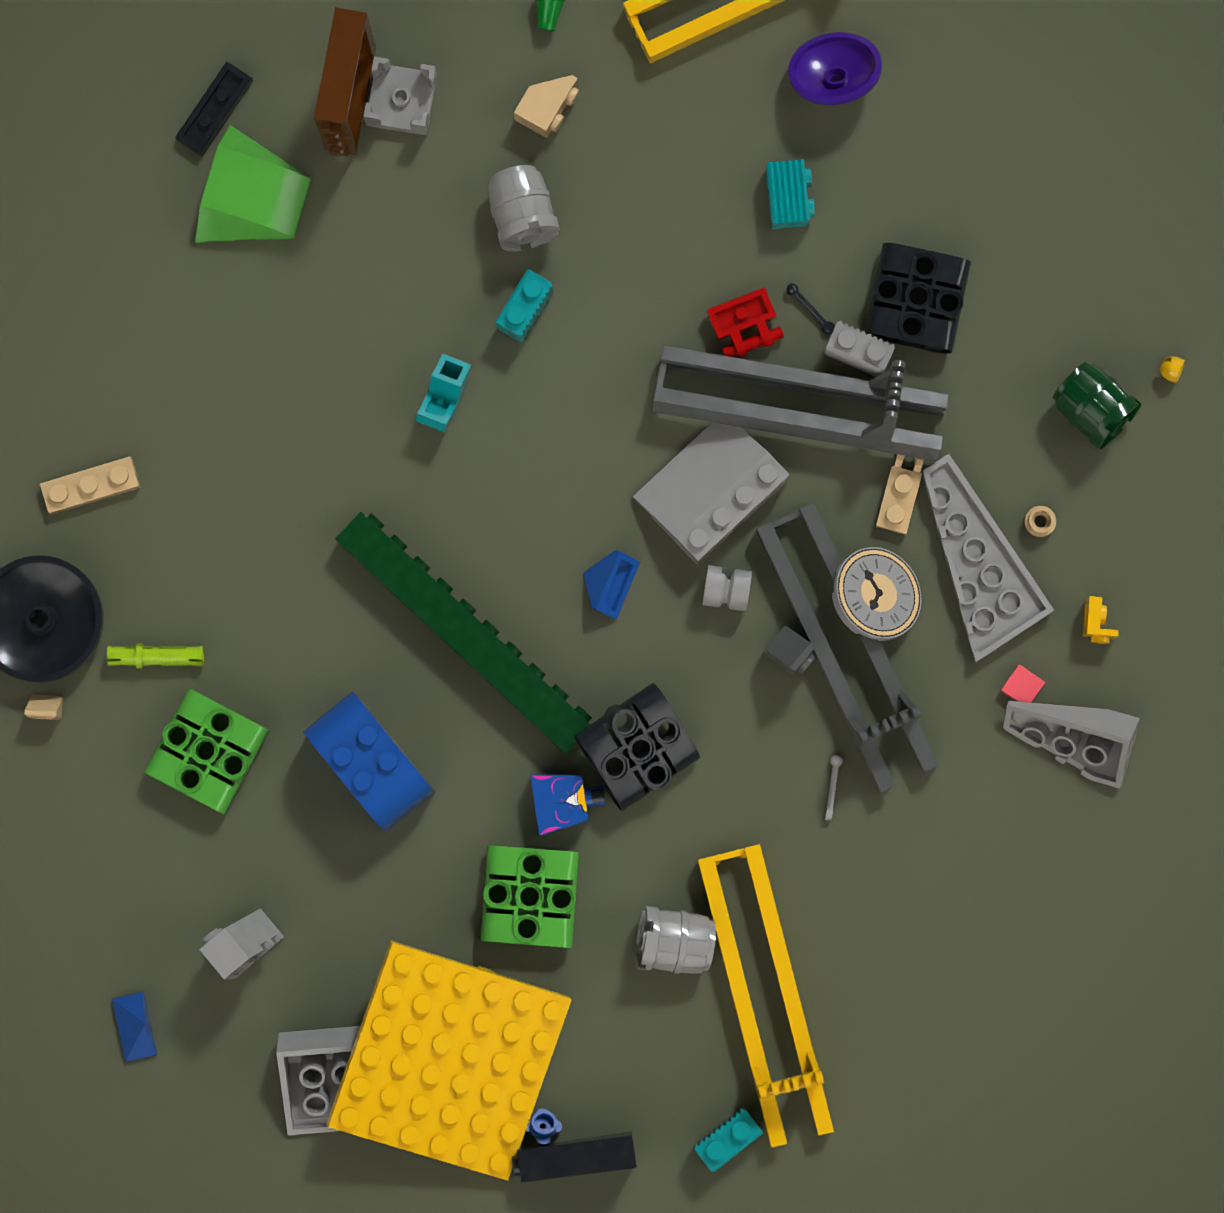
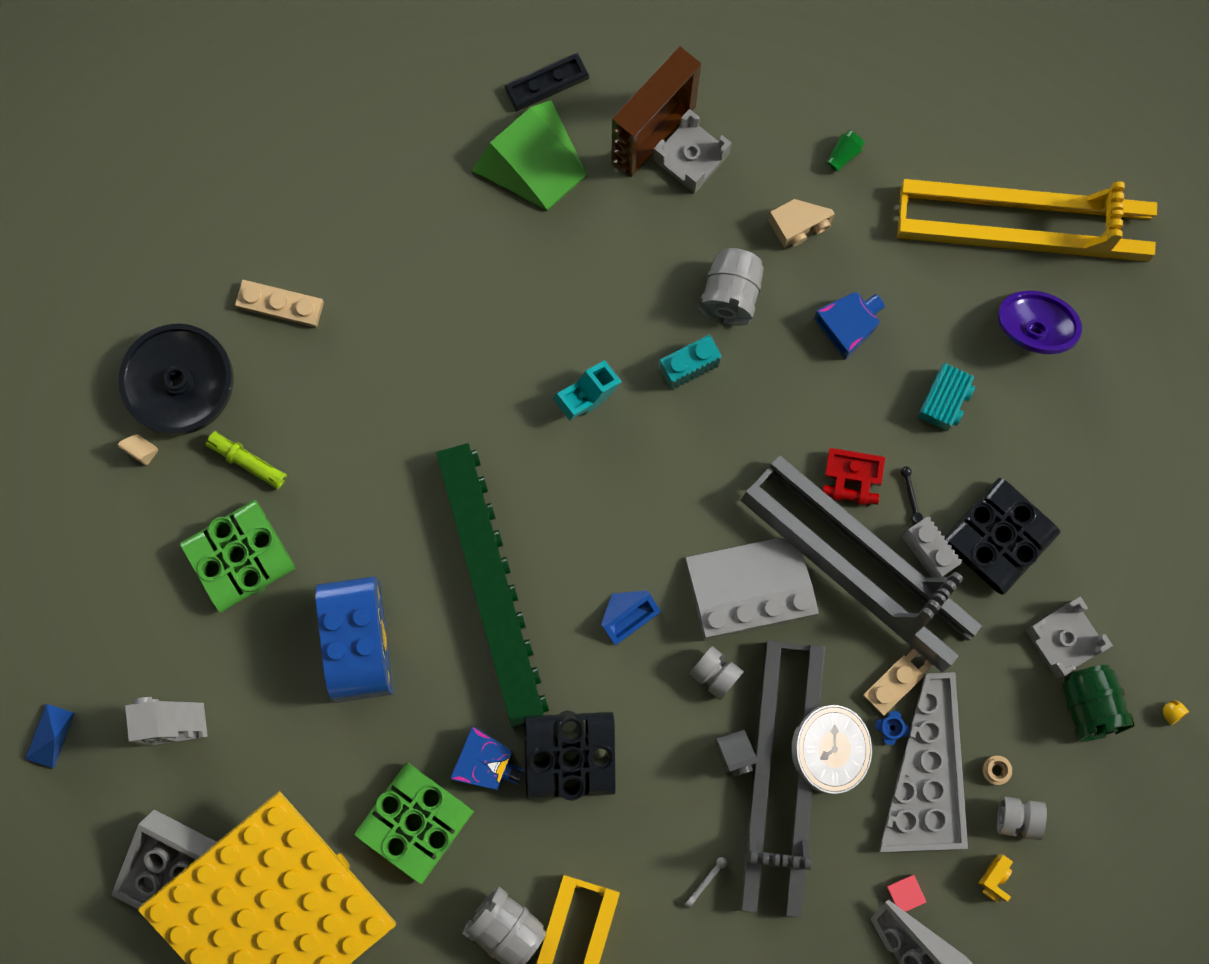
camera: 30 degrees right, 5 degrees down
(653, 174) = (849, 321): none -> blue torso
(929, 537) = (894, 719): none -> blue plate
(1034, 358) = (1067, 638): none -> light grey panel
(1087, 552) = (1021, 818): none -> light grey wheel

